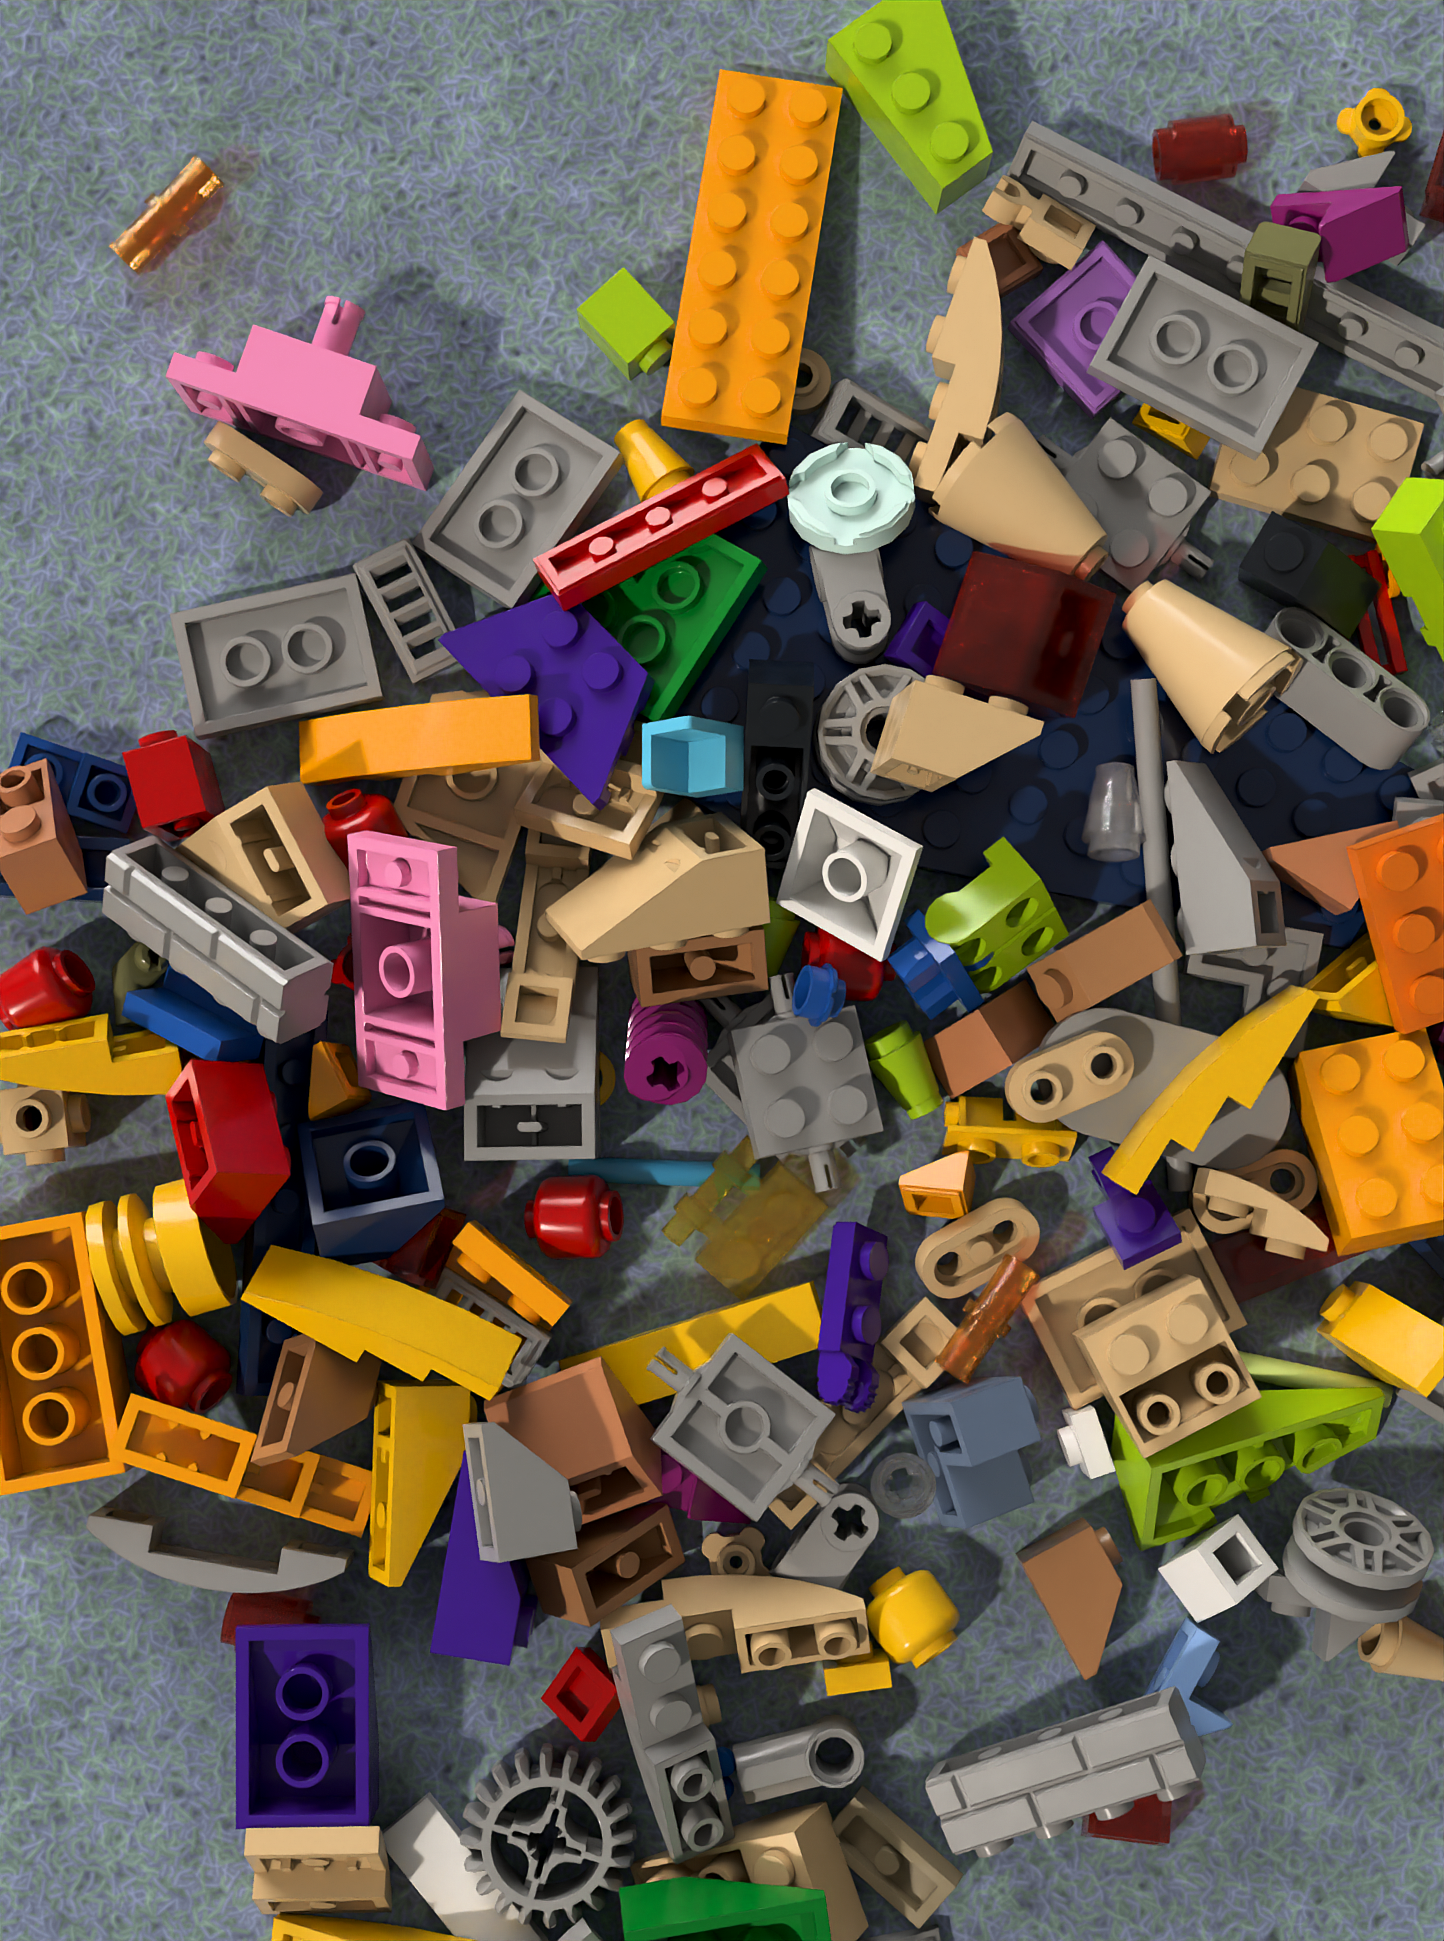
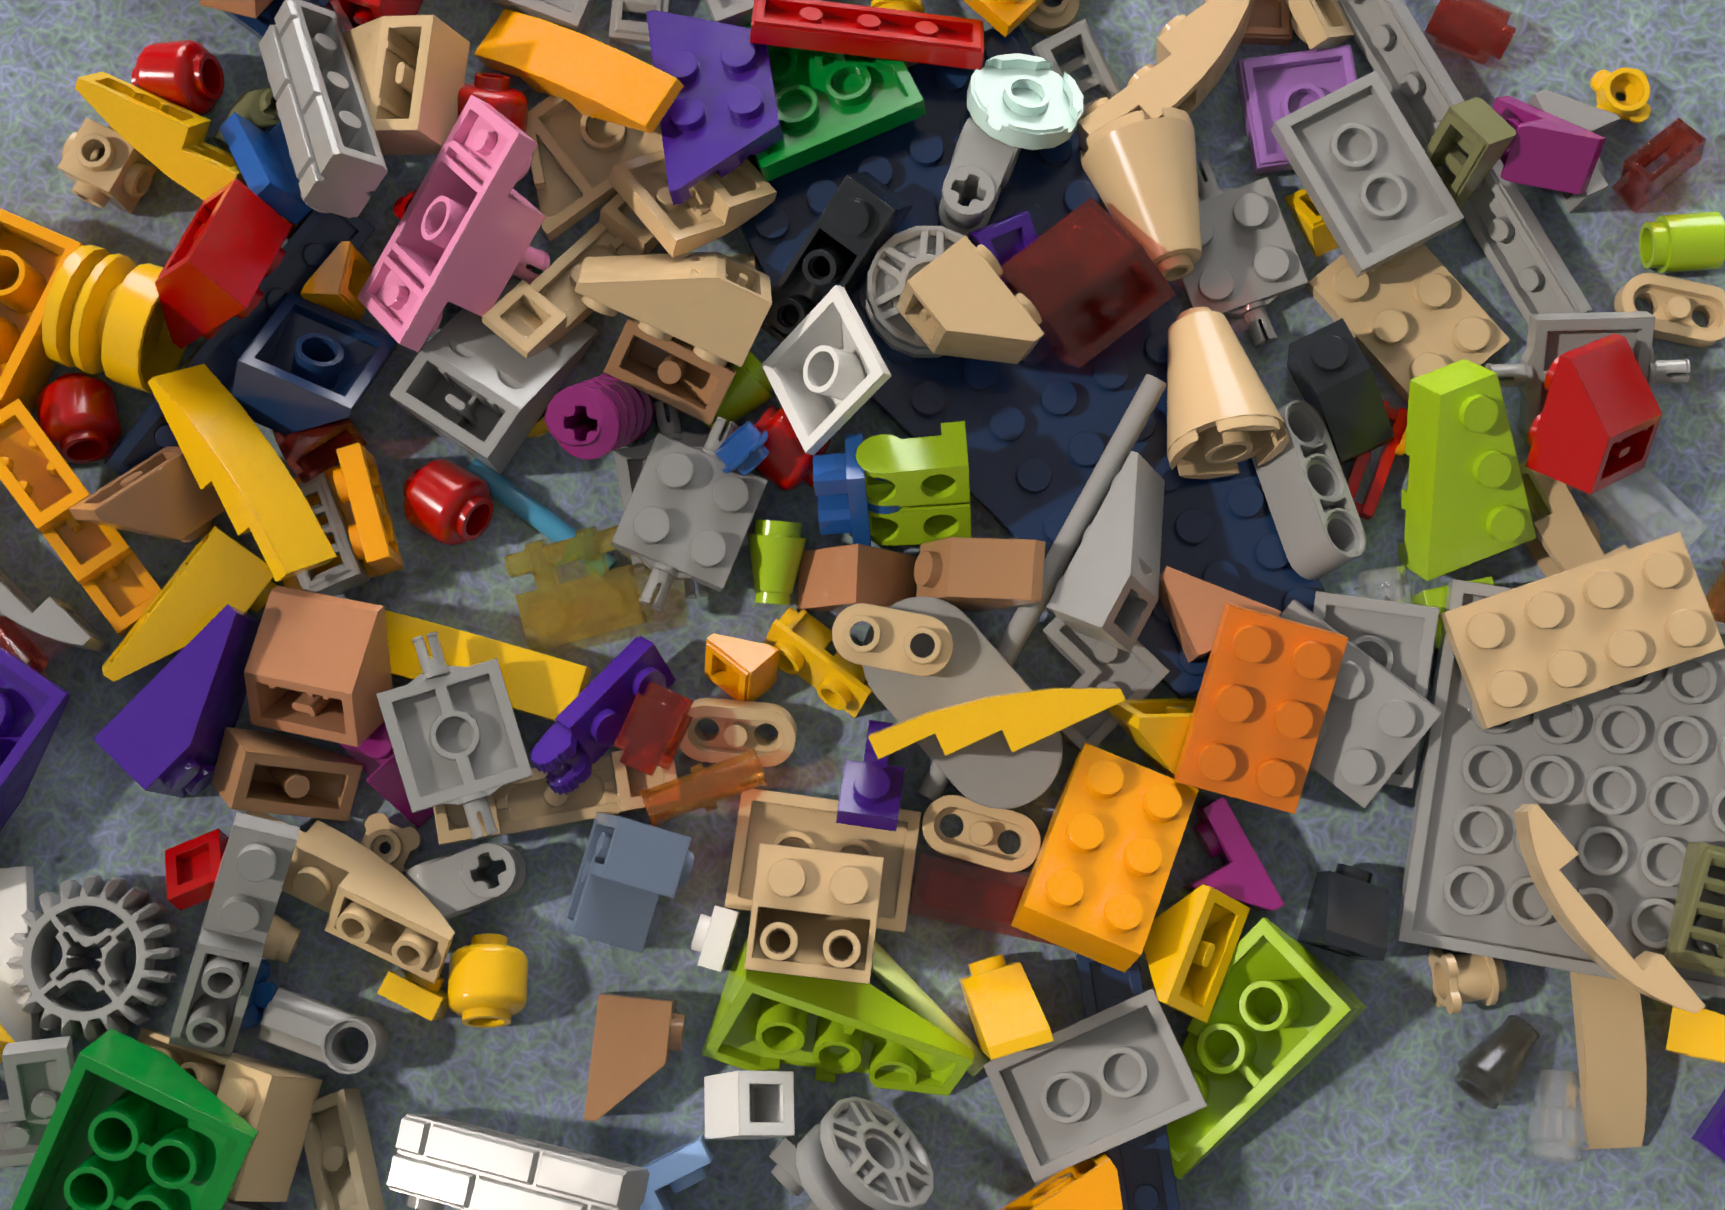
camera: 35 degrees right, 5 degrees down
(517, 1498) = (240, 663): light grey slope -> none
(692, 756) = (769, 207): medium azure panel -> none
(910, 1298) = (654, 729): none -> clear red brick
(913, 1498) = (533, 865): clear cone -> none
(1114, 815) = (1064, 470): clear cone -> none
(1282, 1224) = (980, 864): tan slope -> none

